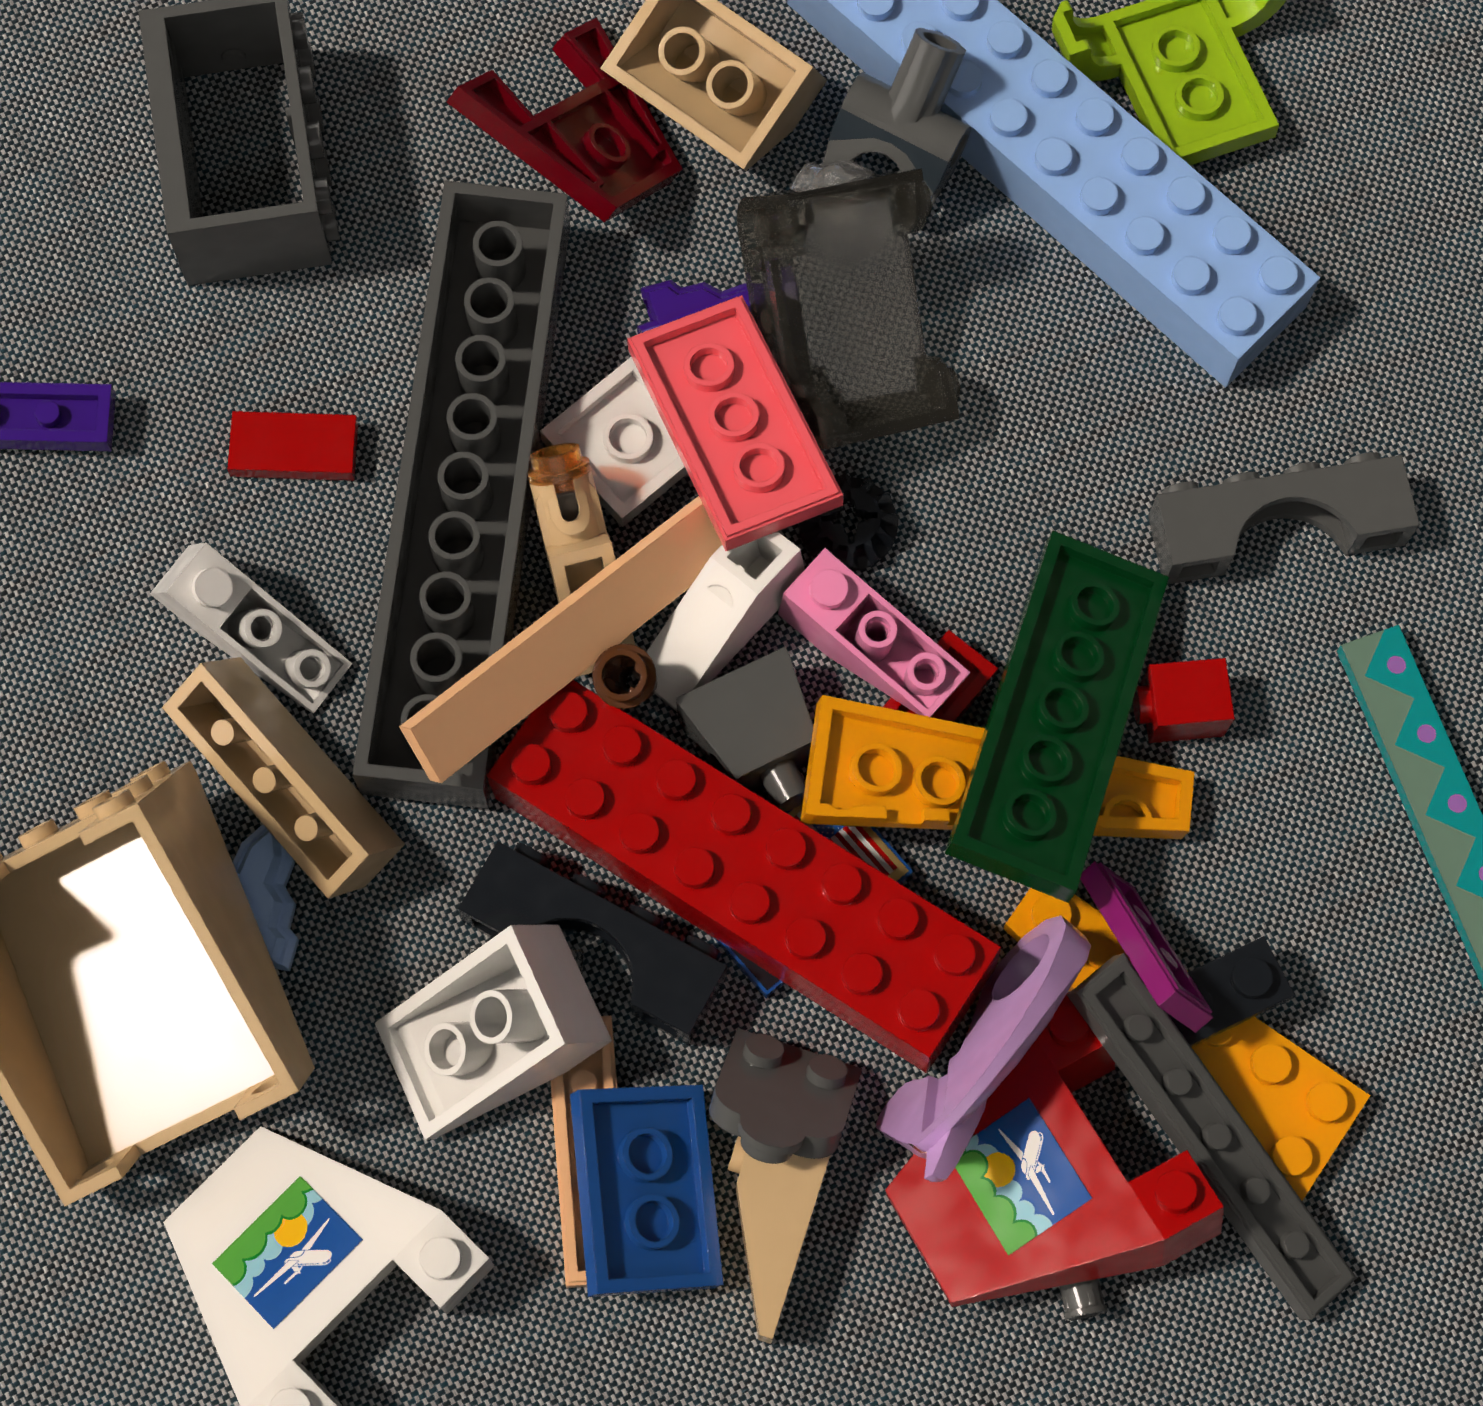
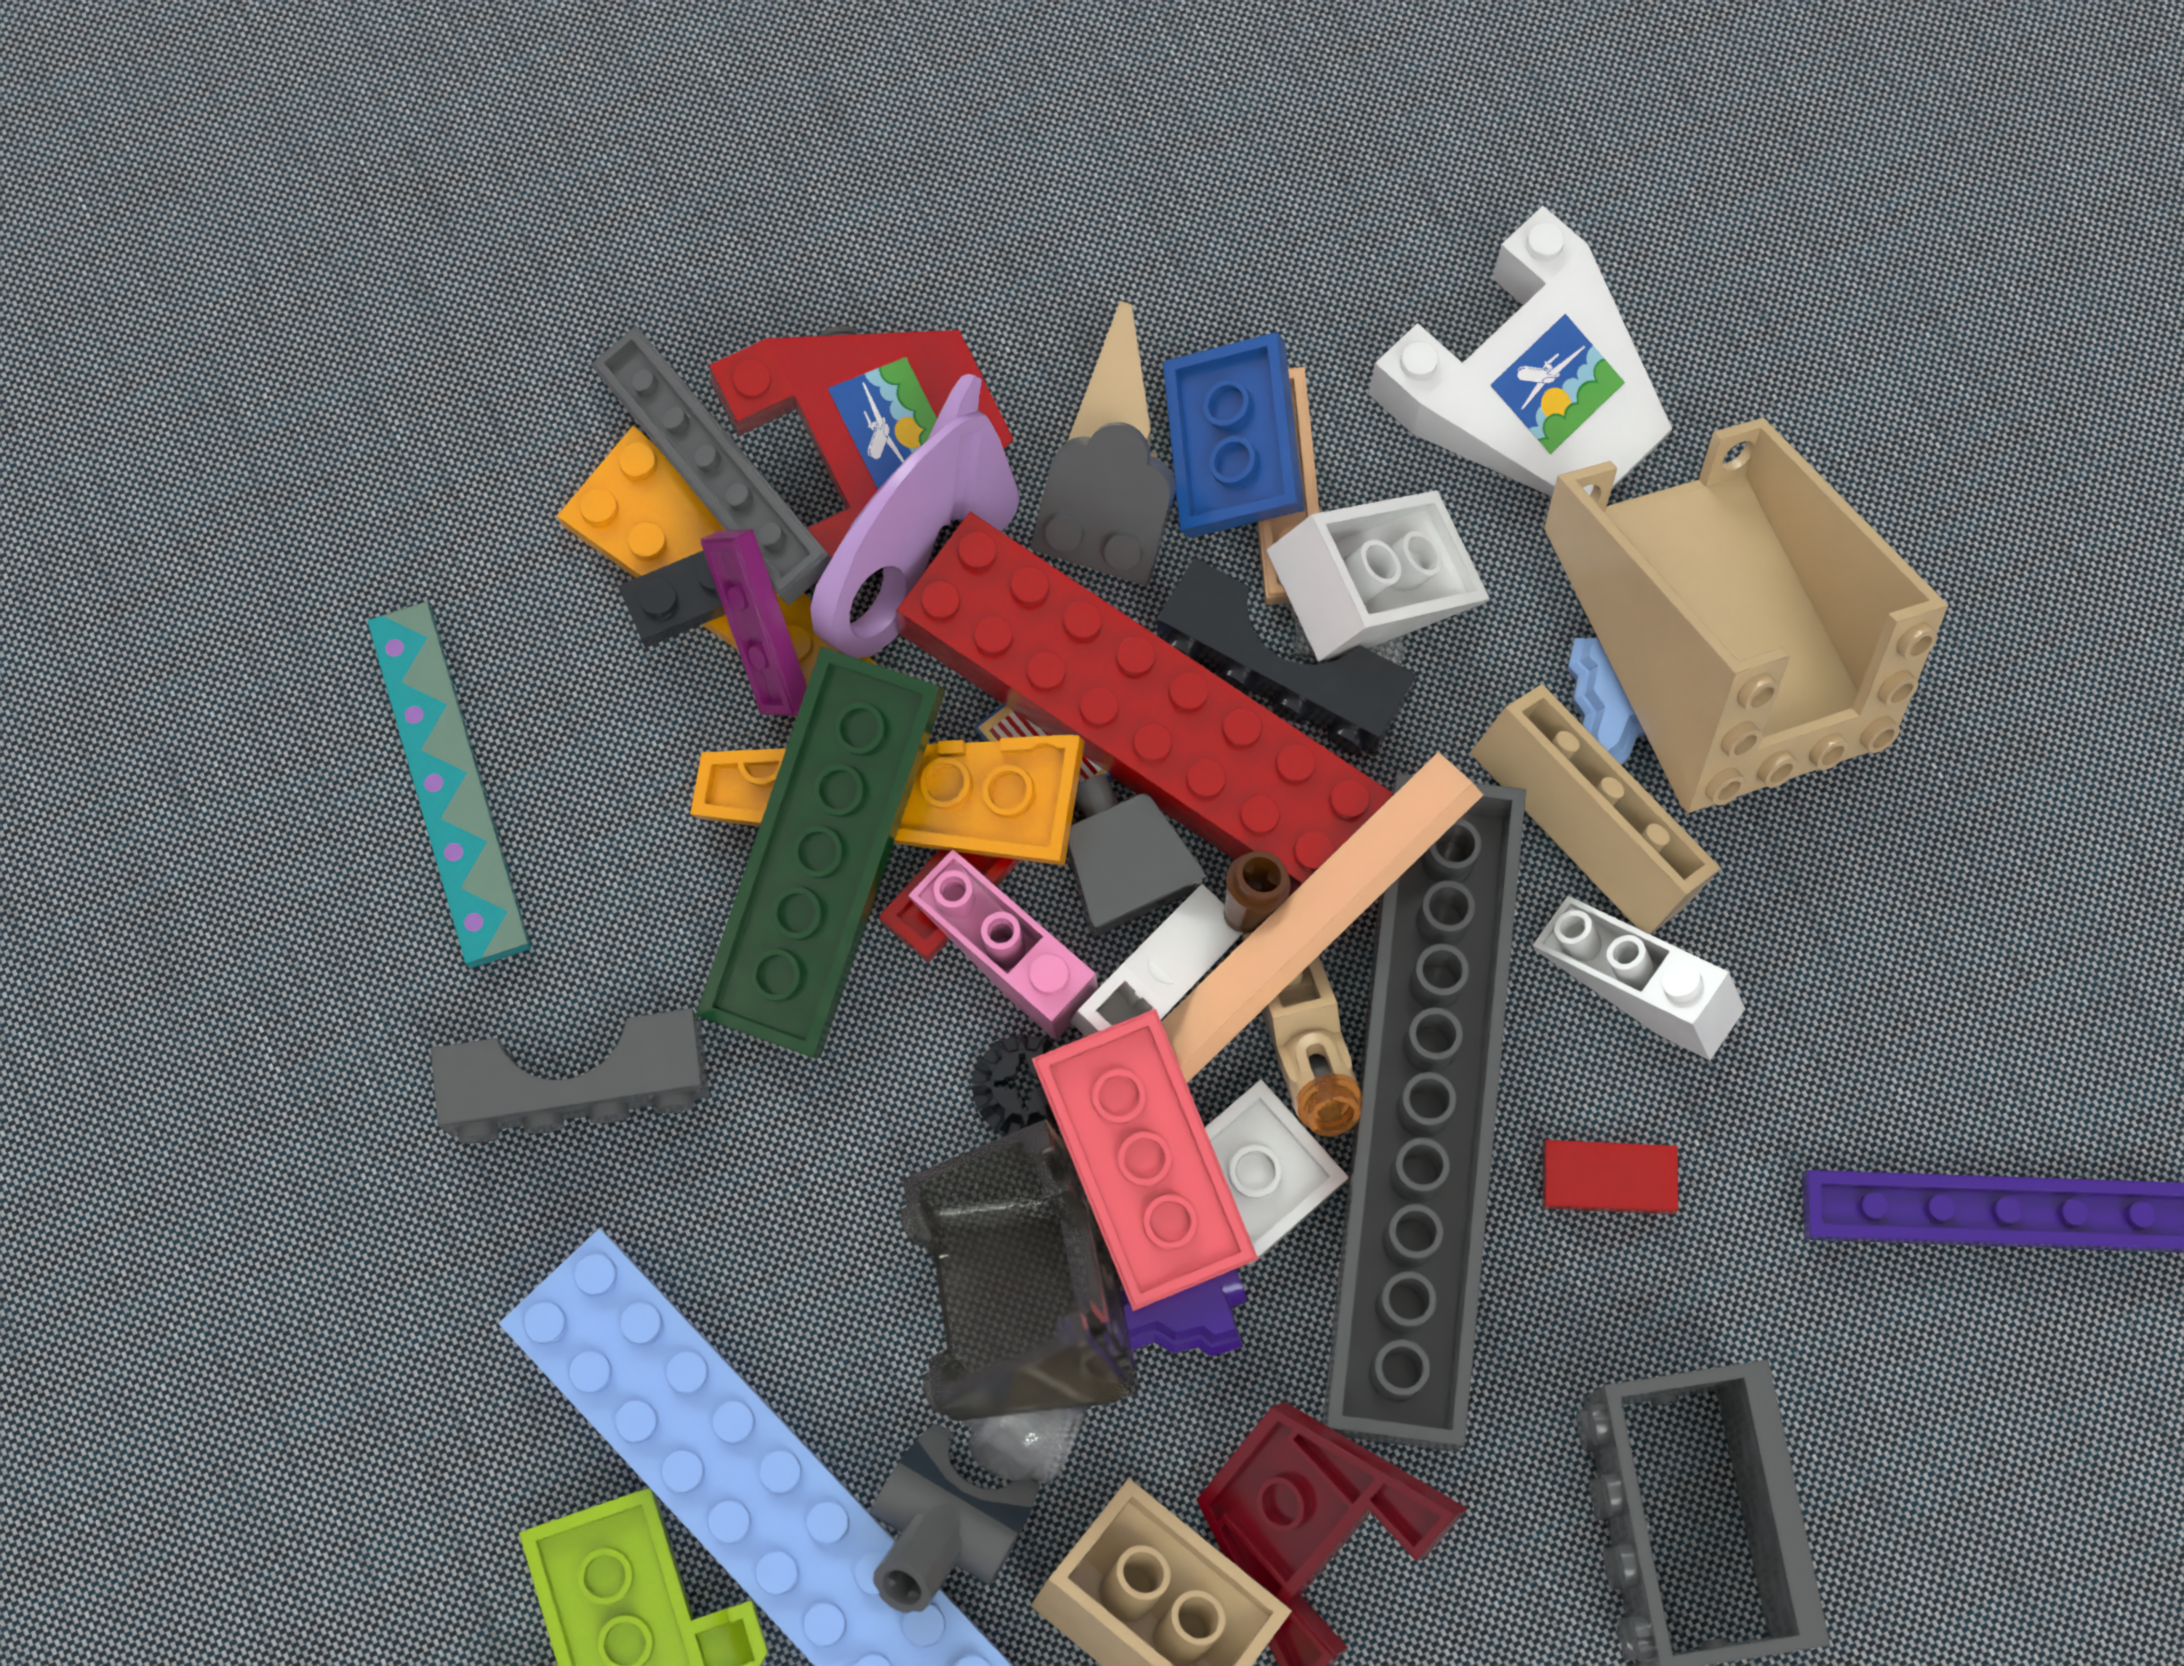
camera: 175 degrees left, 0 degrees up
(1184, 700) = (691, 883): red brick -> none

